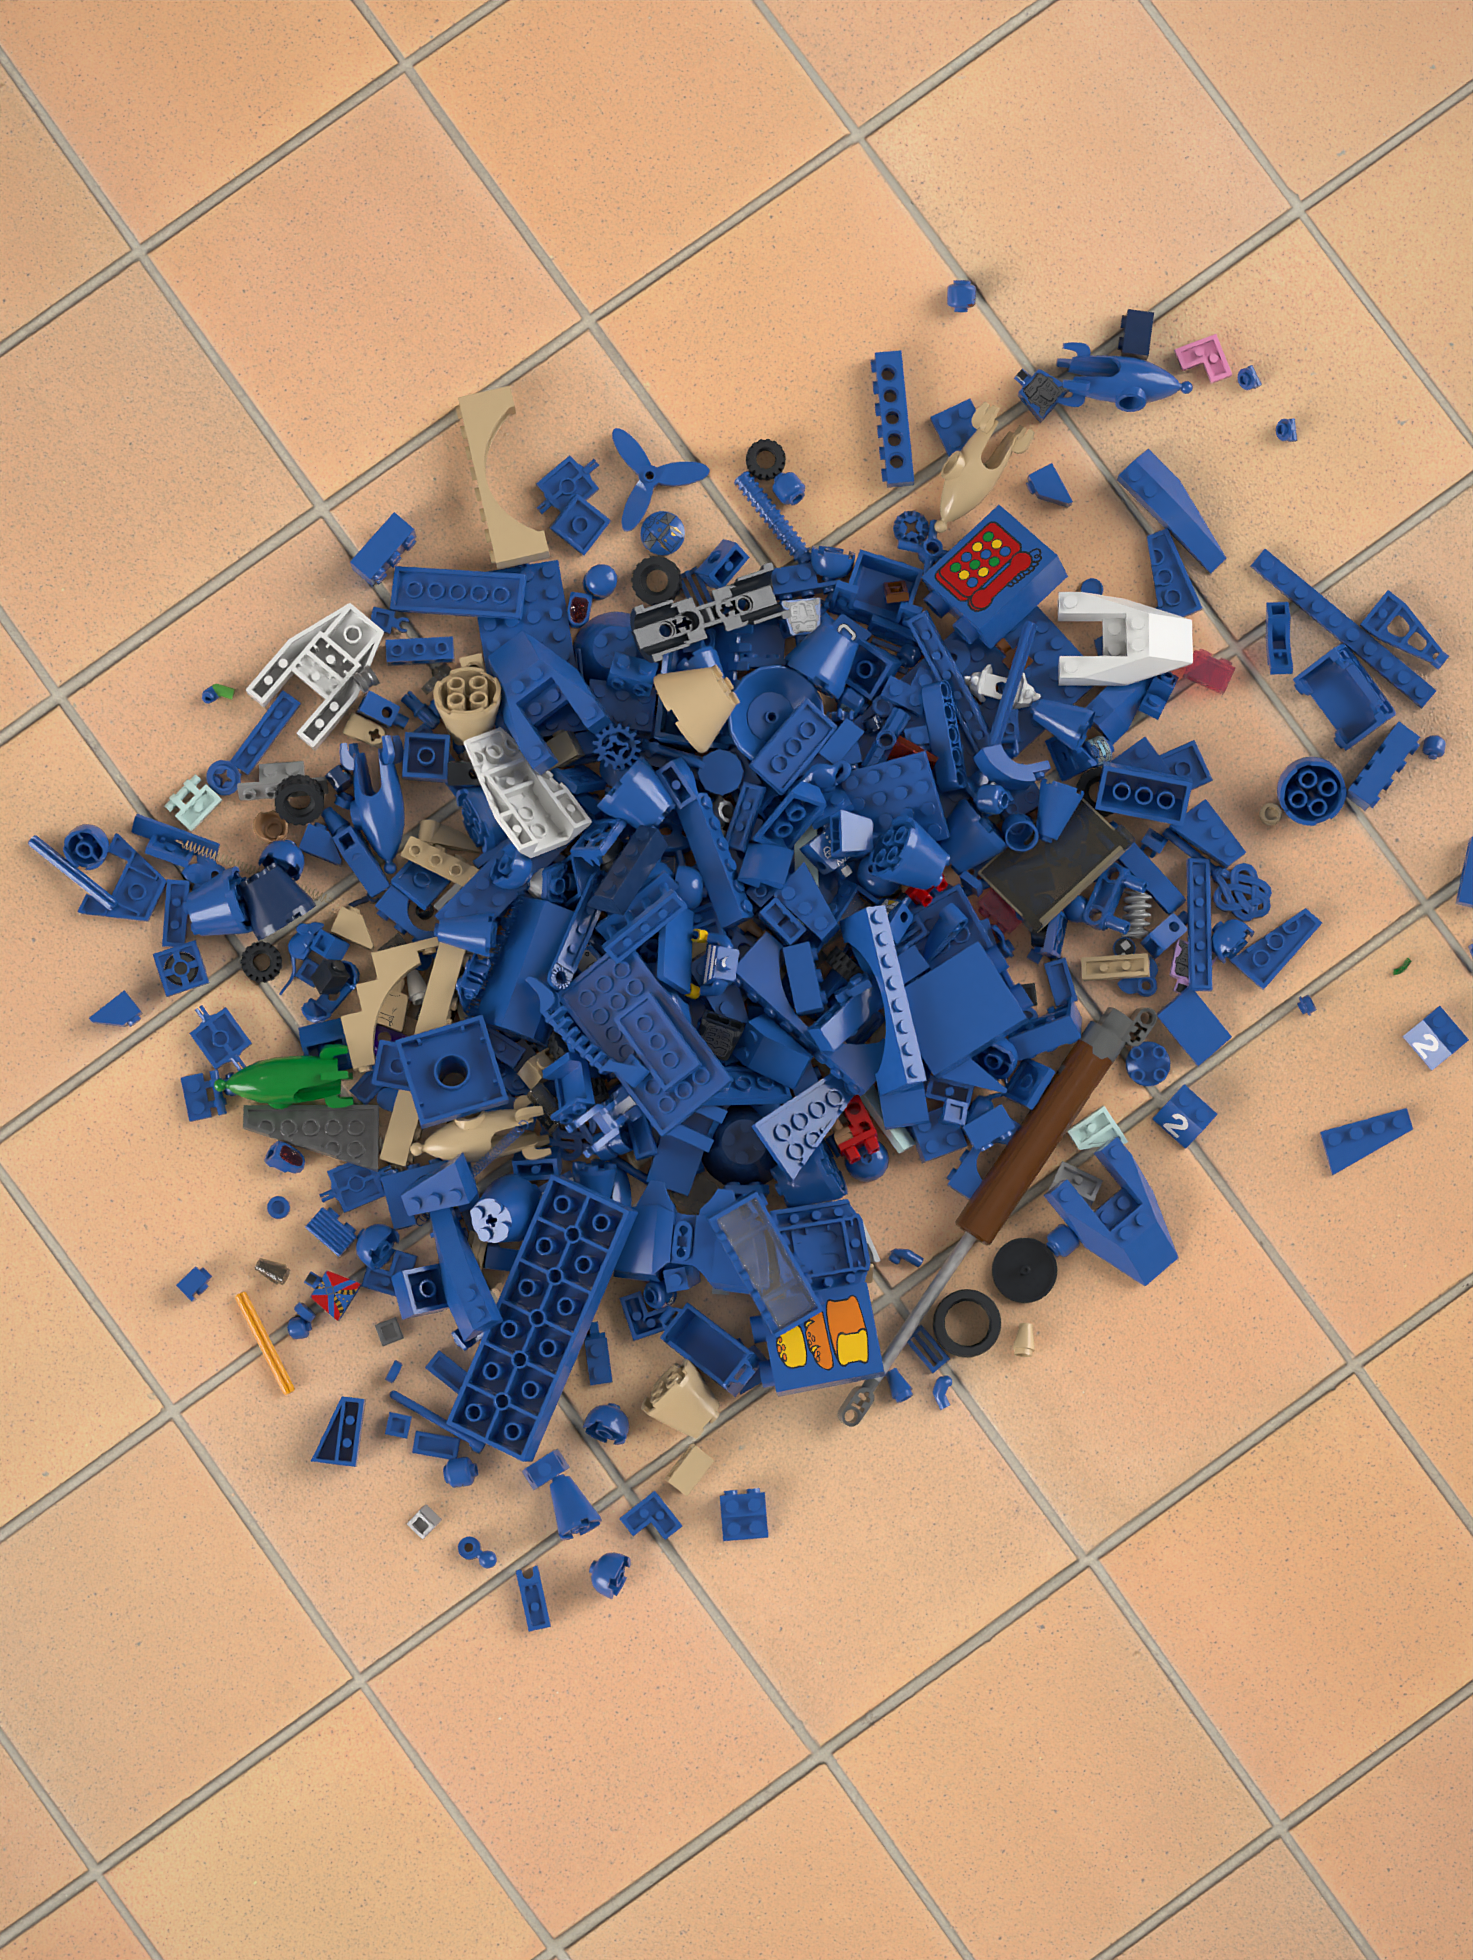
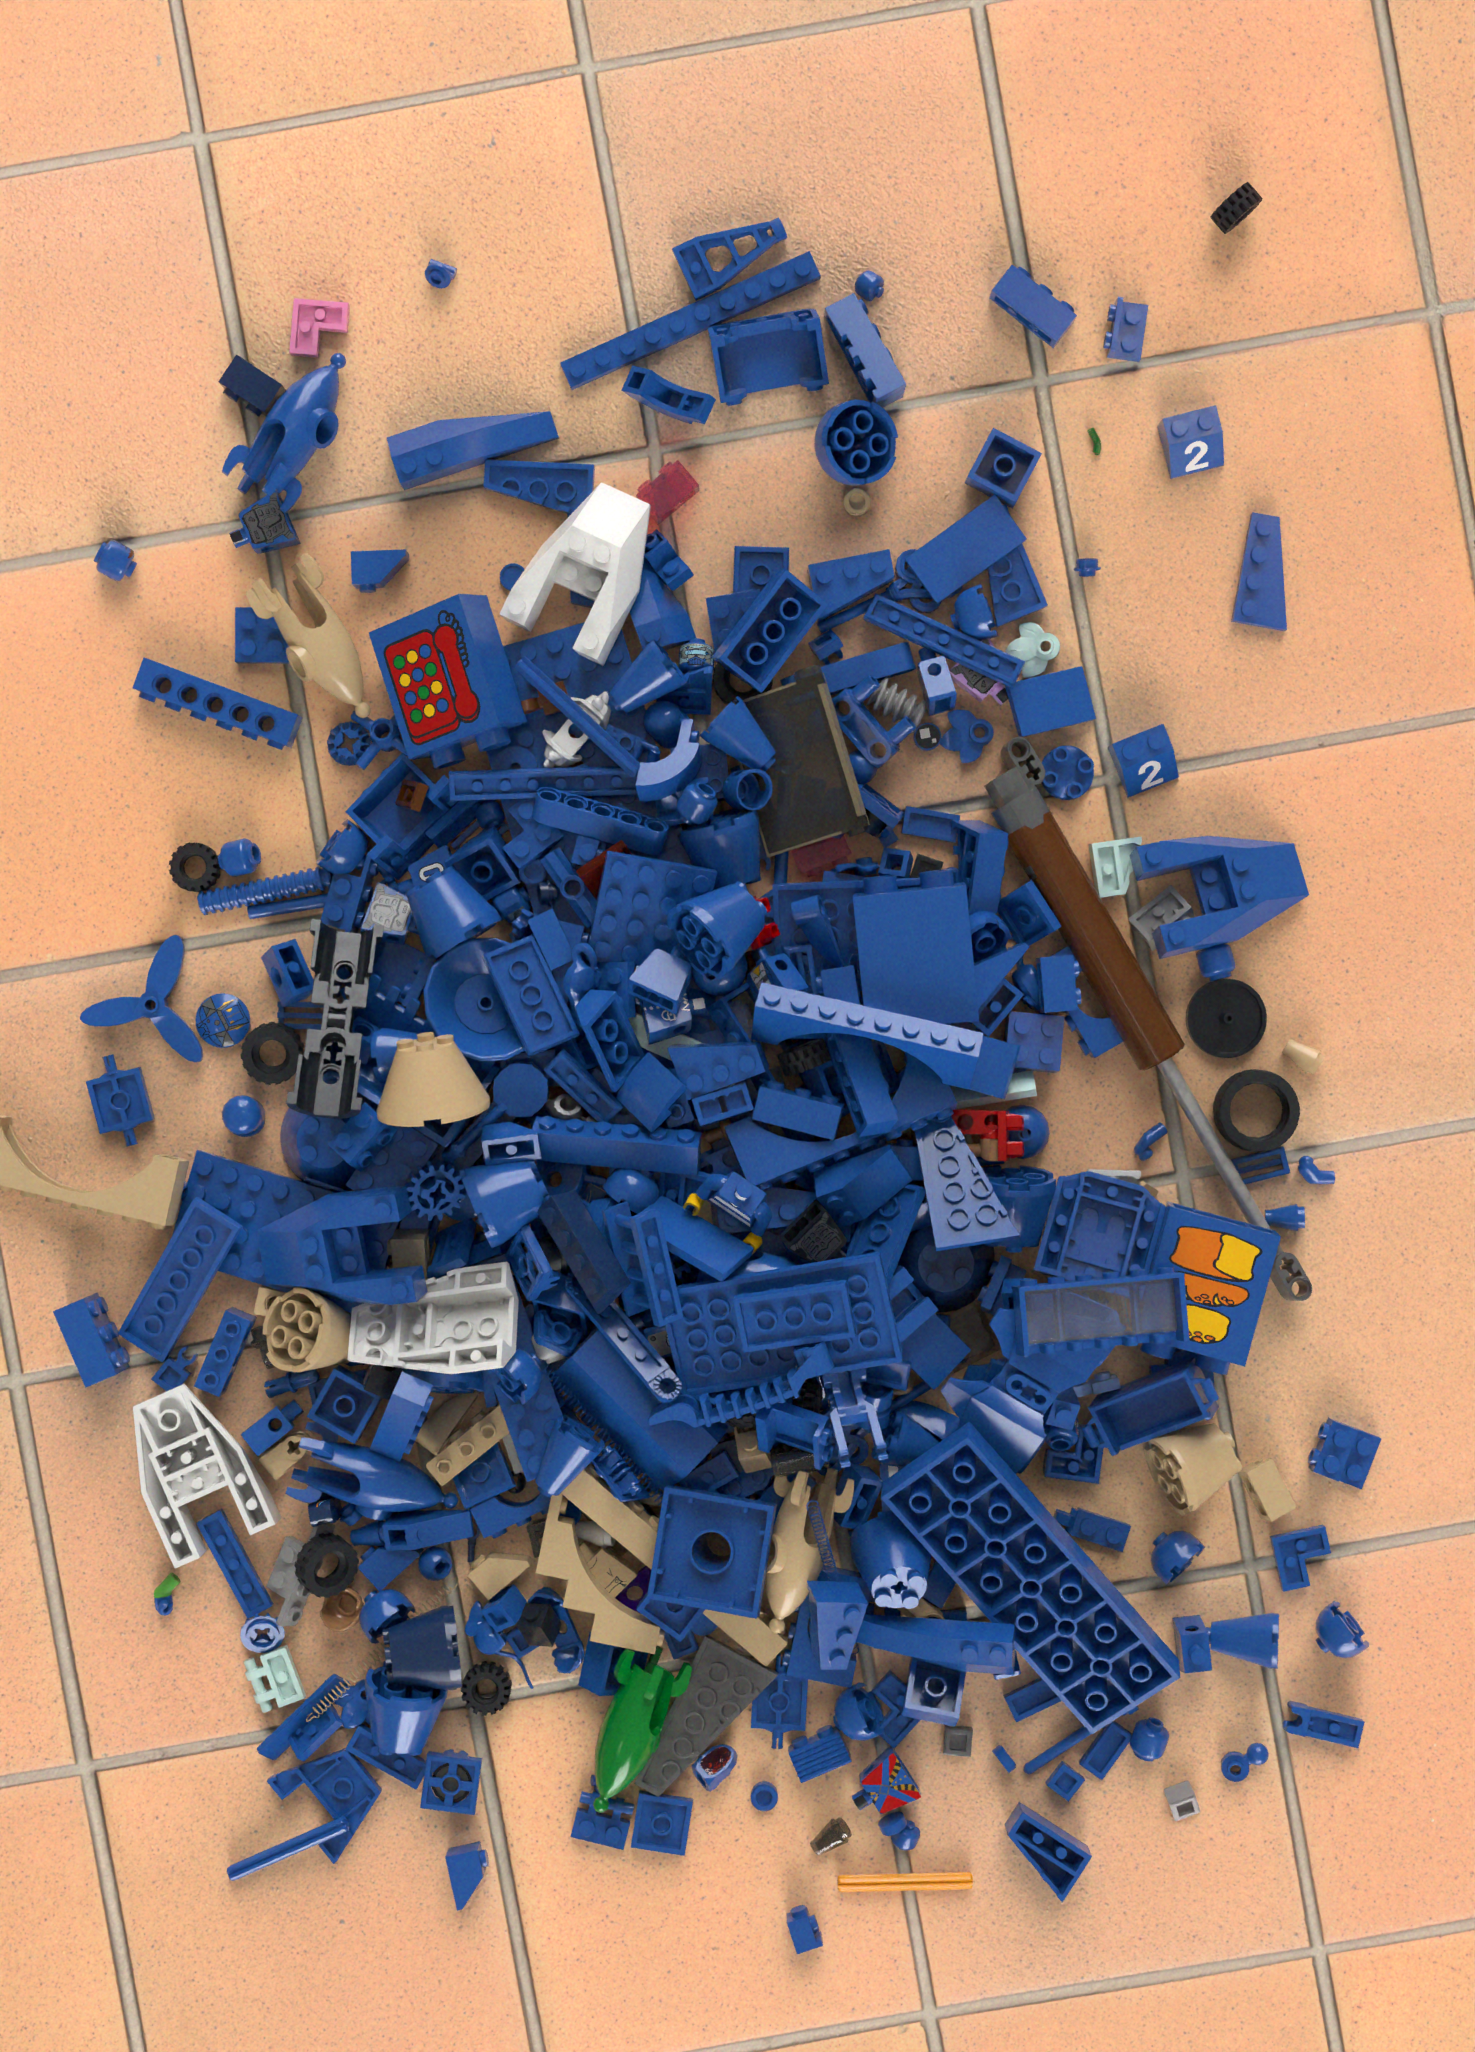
camera: 60 degrees left, 5 degrees up
(86, 846) = (265, 1822): blue cylinder -> none
(220, 1038) = (548, 1772): blue plate -> none
(223, 1140) = (662, 1823): none -> blue plate
(337, 879) = (435, 1563): none -> blue piece
(365, 679) = (226, 1432): flat silver wheel -> none
(440, 800) = (402, 1417): none -> blue wedge
(579, 524) = (168, 1107): blue tile -> none
(579, 609) = (263, 1154): rock -> none
(709, 1308) = (1101, 1383): none -> light blue plate
(769, 540) = (287, 906): none -> blue piece
(855, 986) = (836, 1058): blue plate -> none
(954, 1112) = (1023, 1013): plate -> none
(971, 883) = (776, 870): blue tile -> none
(1021, 966) = (896, 858): none -> blue plate
(1039, 748) = (663, 723): none -> blue helmet
(1115, 967) = (944, 756): tan plate -> none
(1224, 992) = (1029, 648): none -> light aqua plate
(1248, 378) = (361, 287): blue plate -> none
(1274, 909) = (965, 549): none -> blue tile
(1347, 907) = (1003, 467): none -> blue brick

